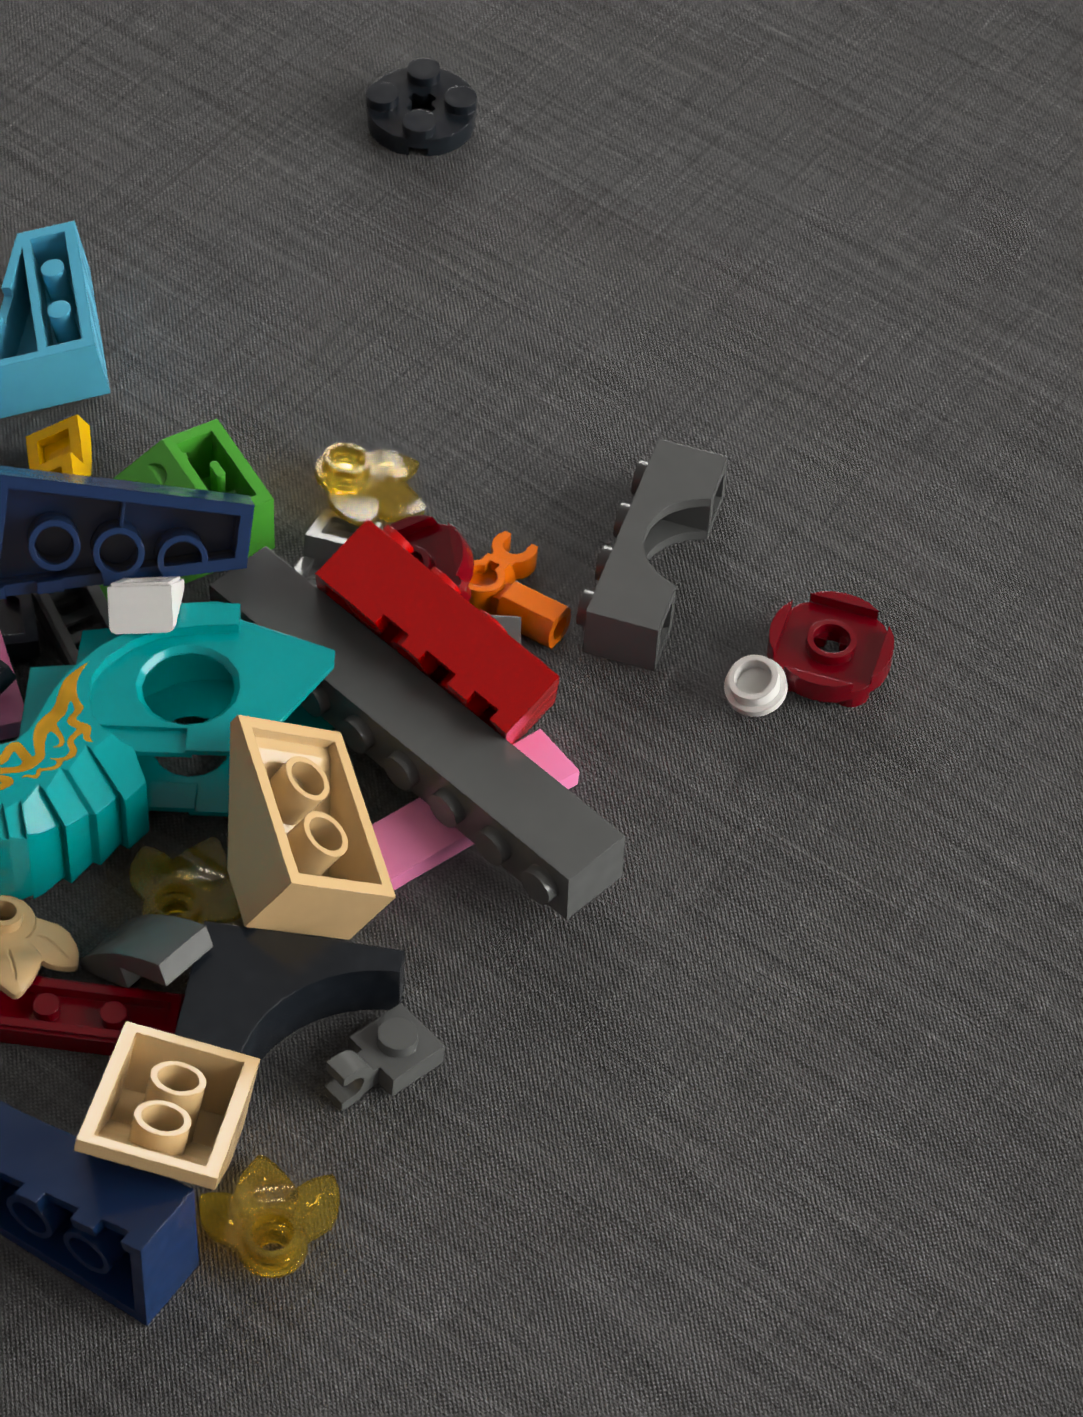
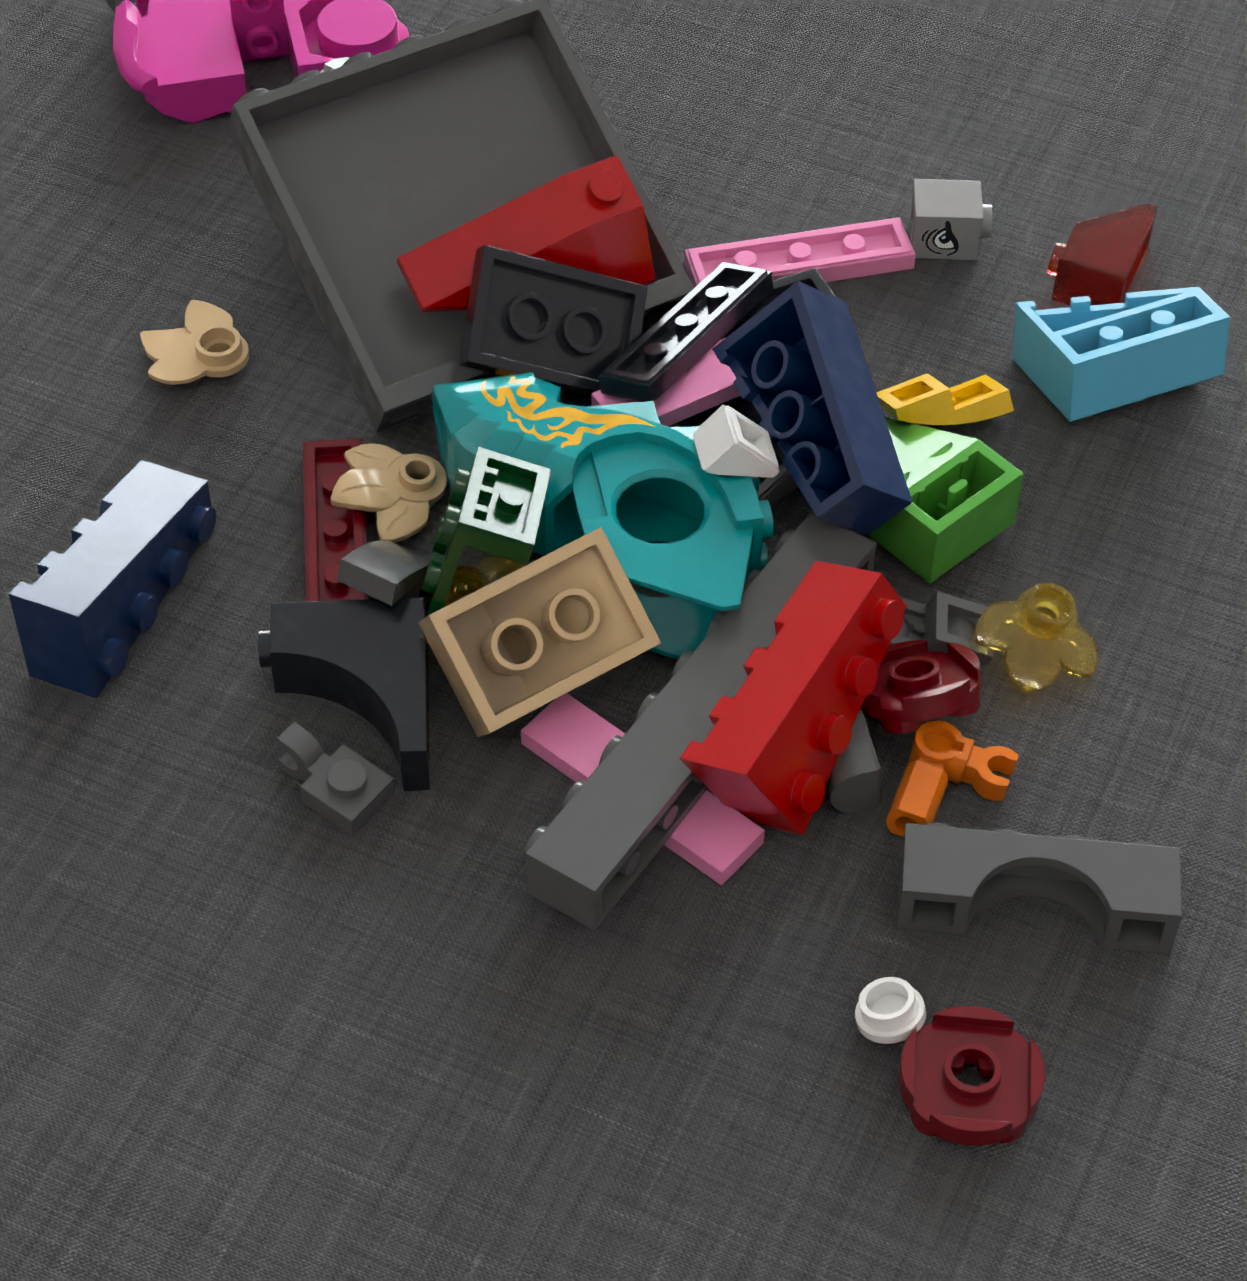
camera: 80 degrees right, 0 degrees up
(164, 836) = (494, 512): none -> dark green bracket
(169, 1106) = (180, 602): tan slope -> none
(271, 1211) = (148, 731): clear yellow plate -> none

